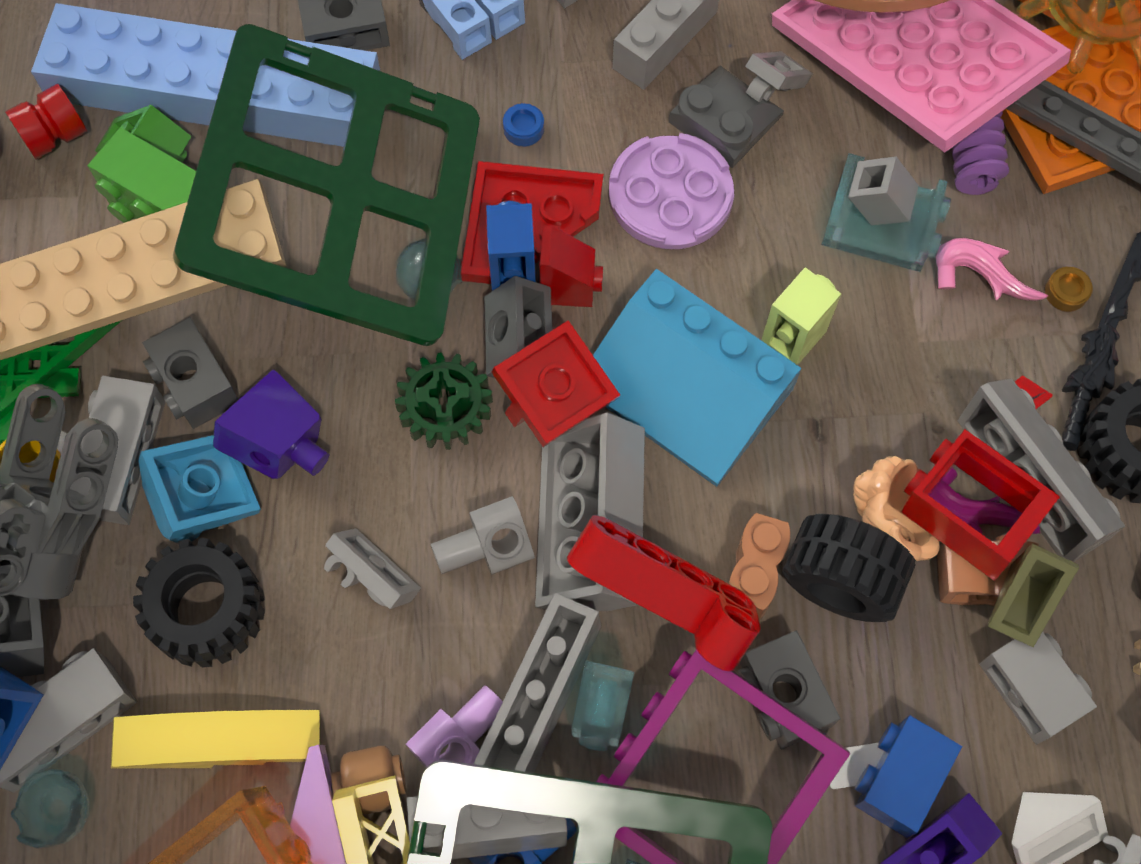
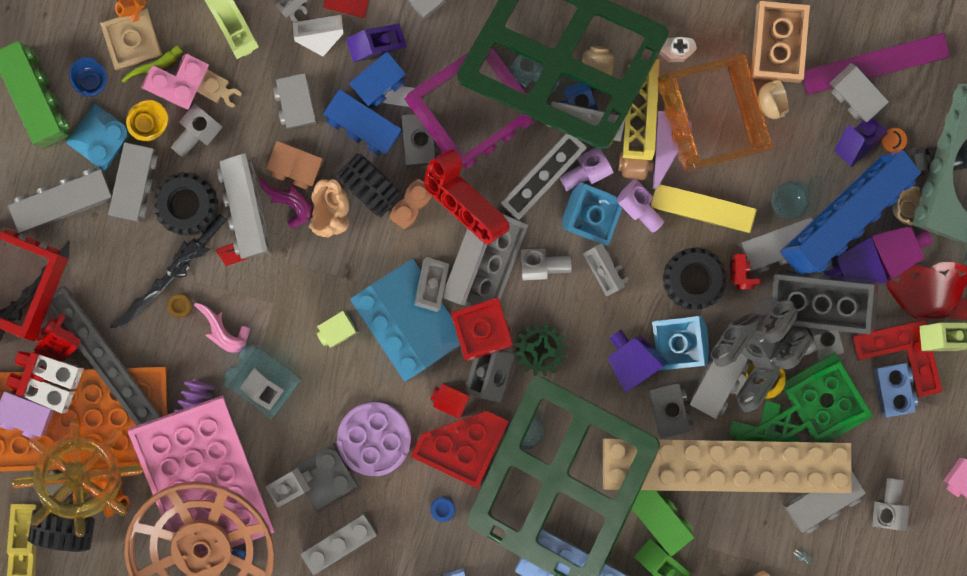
camera: 155 degrees left, 20 degrees up
(111, 634) = (738, 270): none -> red bracket
(348, 704) = (636, 202): none -> lavender piece
(424, 659) = (591, 214): none -> dark azure slope
(510, 242) = (479, 415): blue brick -> none
(601, 705) = (513, 159): clear light blue slope -> none
(669, 444) = (431, 284): none -> light grey plate
(904, 684) = (362, 123): none -> blue brick
(997, 475) = (278, 172): red window -> none
(1031, 594) = (288, 139): olive slope -> none

